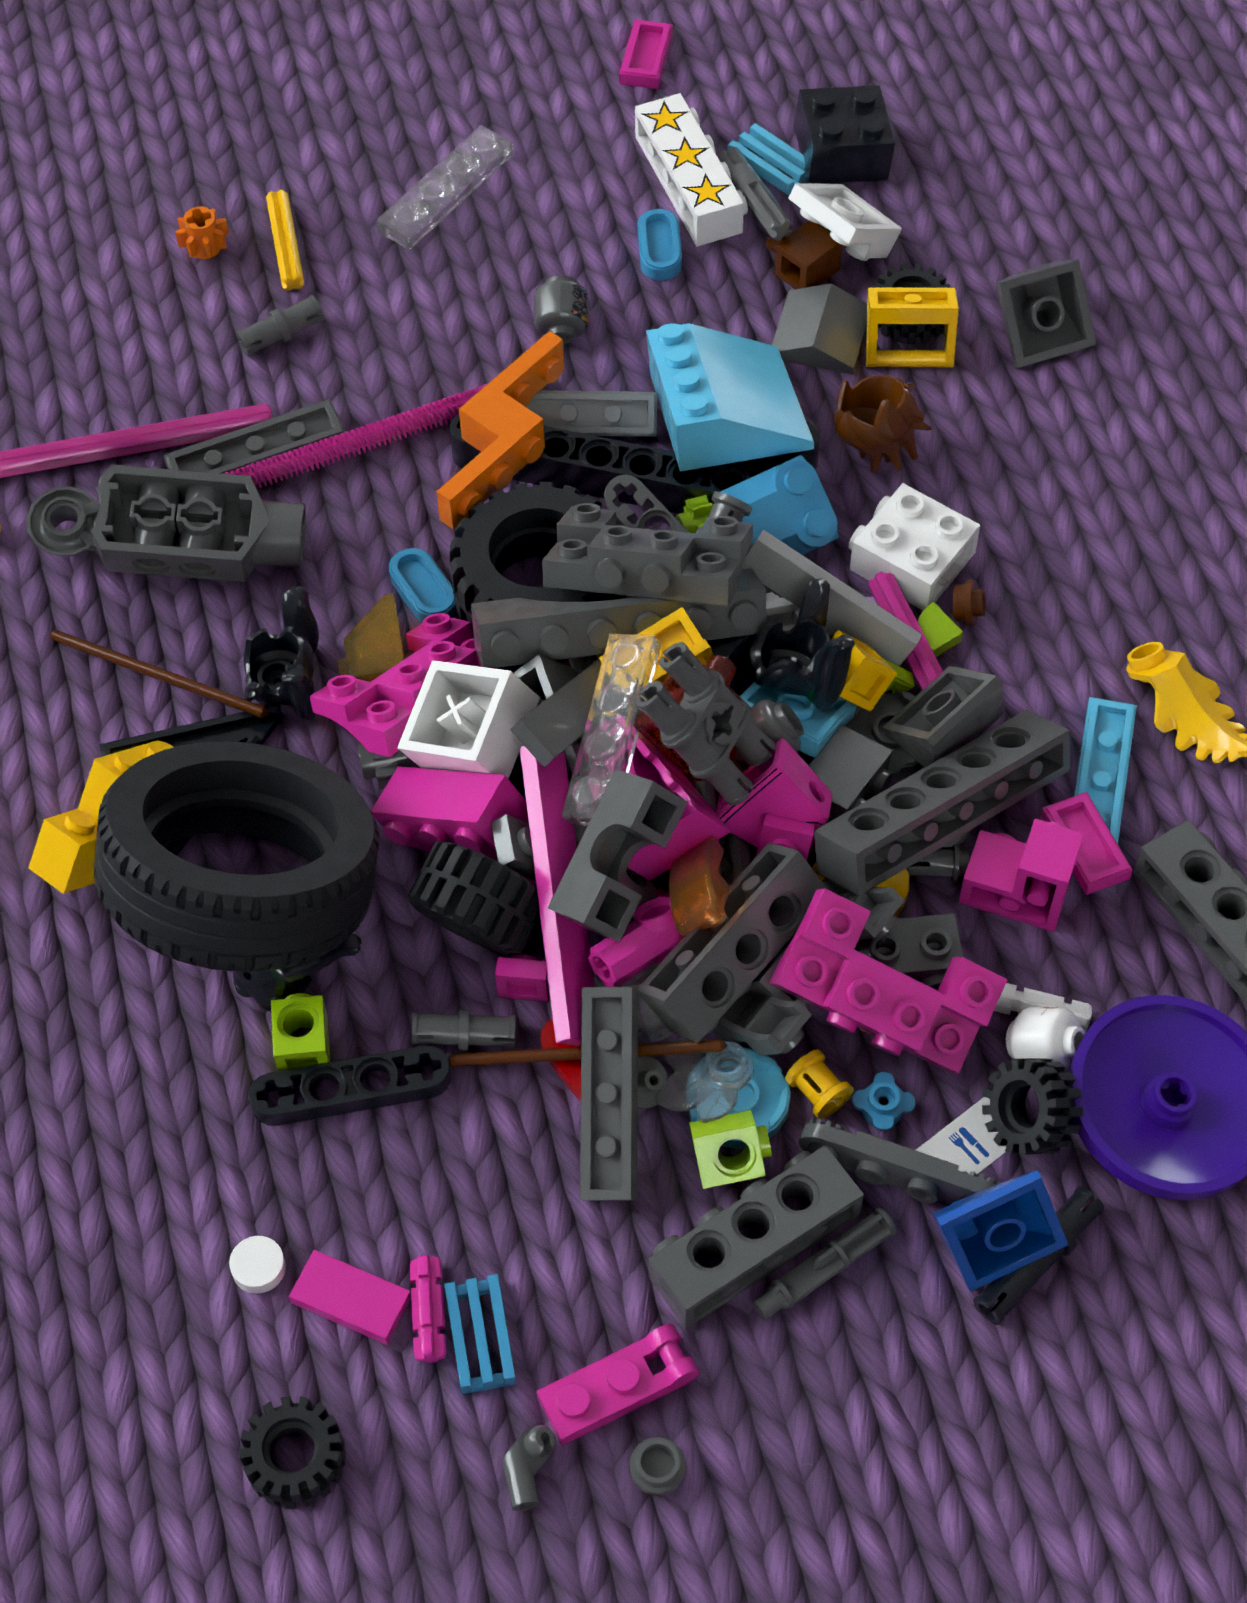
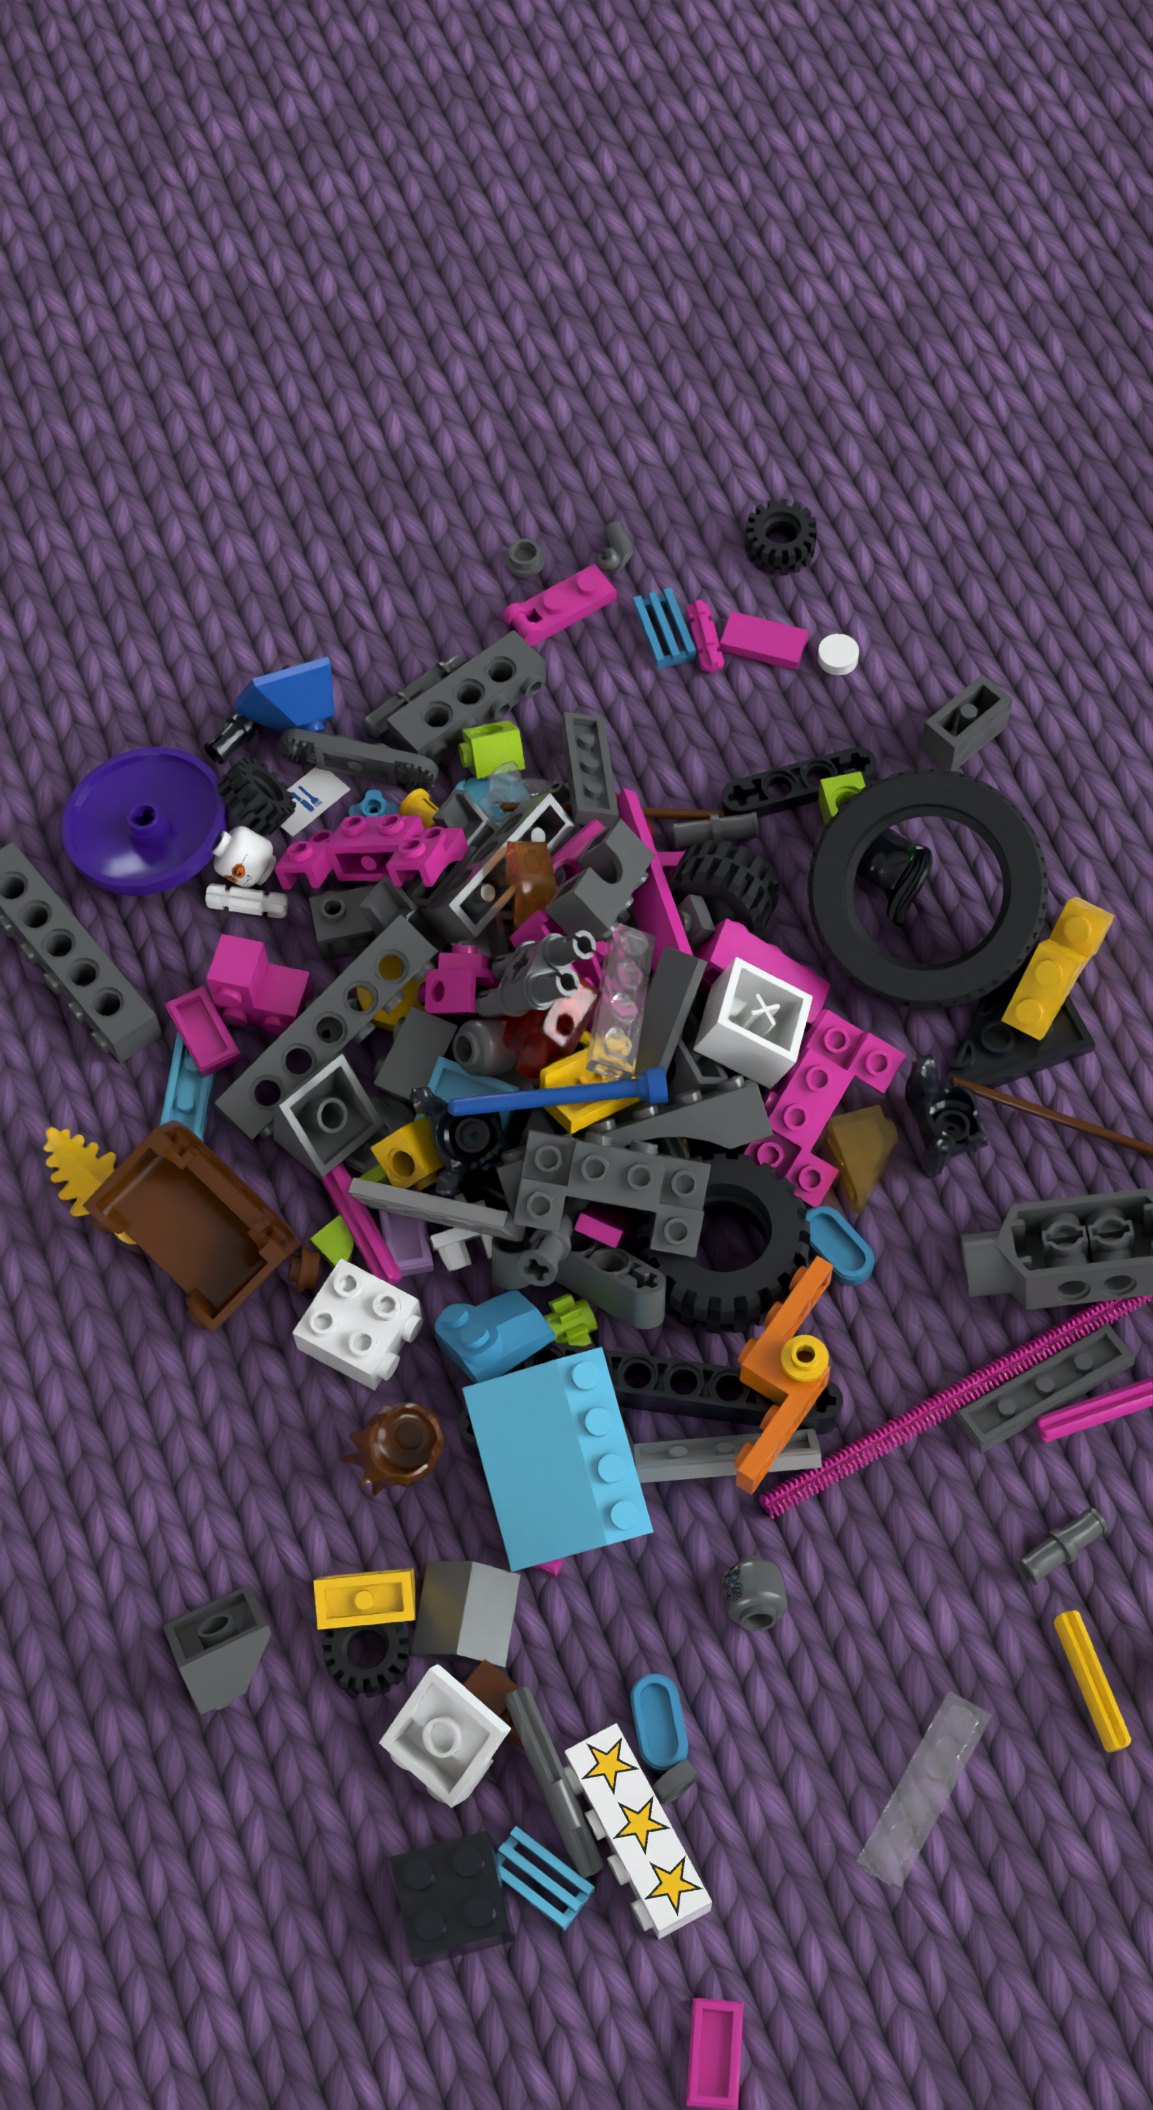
camera: 175 degrees right, 5 degrees up
(124, 1114) = (966, 724): none -> dark grey brick
(482, 405) = (804, 1371): none -> yellow plate
(595, 630) = (646, 1086): none -> blue piece
(652, 193) = (675, 1782): none -> dark grey tile
(1046, 627) = (194, 1221): none -> reddish brown windscreen

